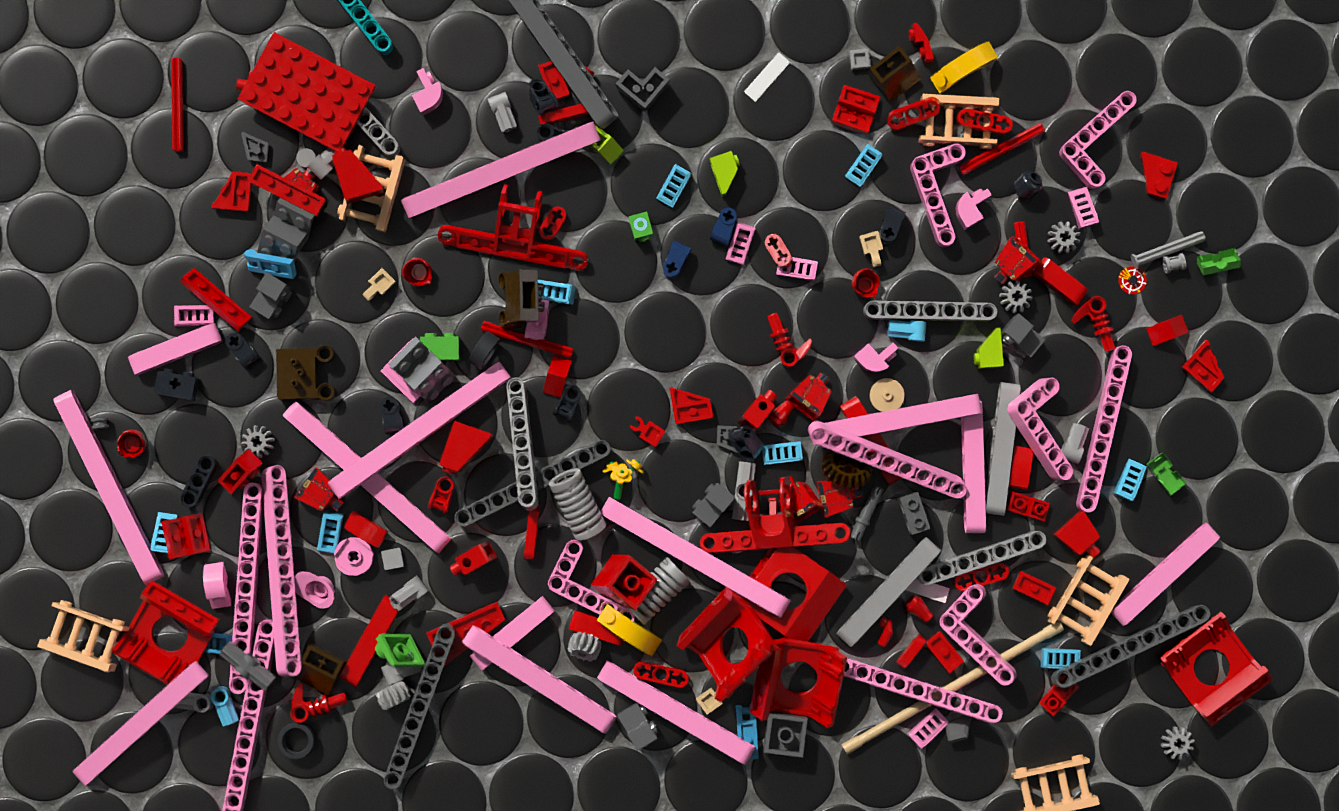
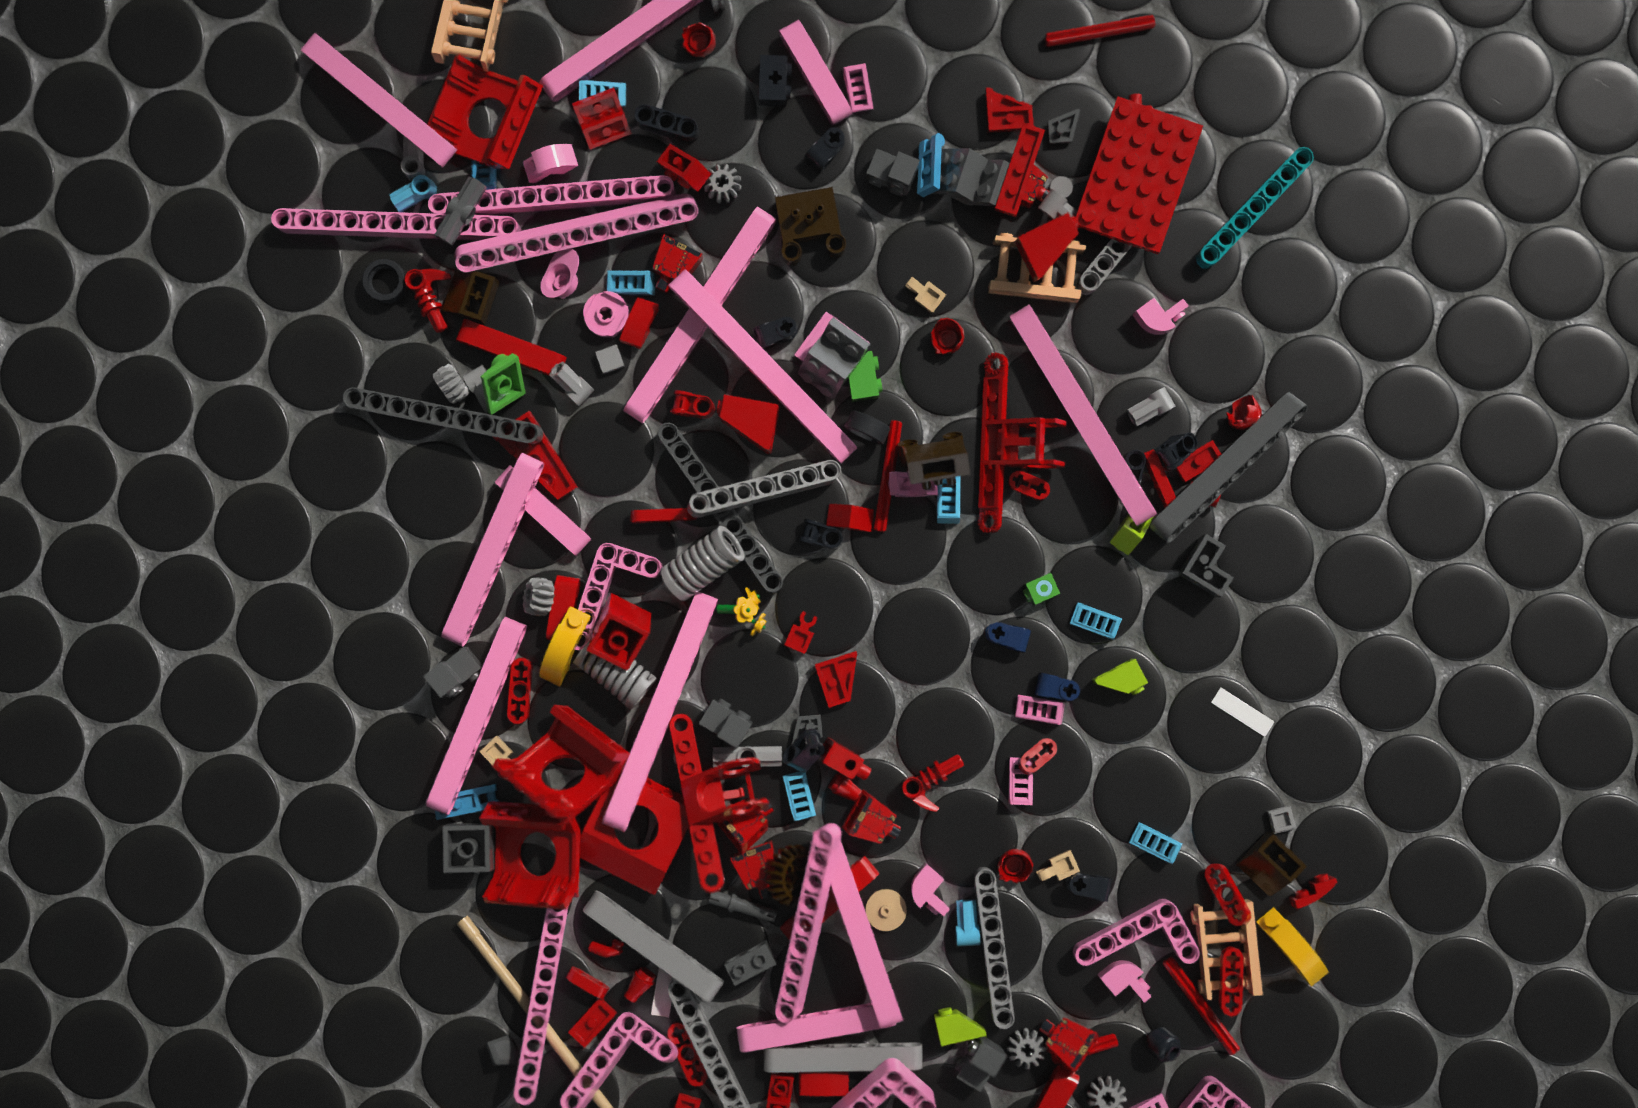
camera: 90 degrees right, 0 degrees up
(215, 299) = (880, 109): red plate -> none
(478, 556) = (622, 452): red torso -> none
(519, 35) = (1244, 413): none -> red hair
(855, 110) = (1220, 823): red slope -> none
(922, 743) = (492, 998): bright pink slope -> none

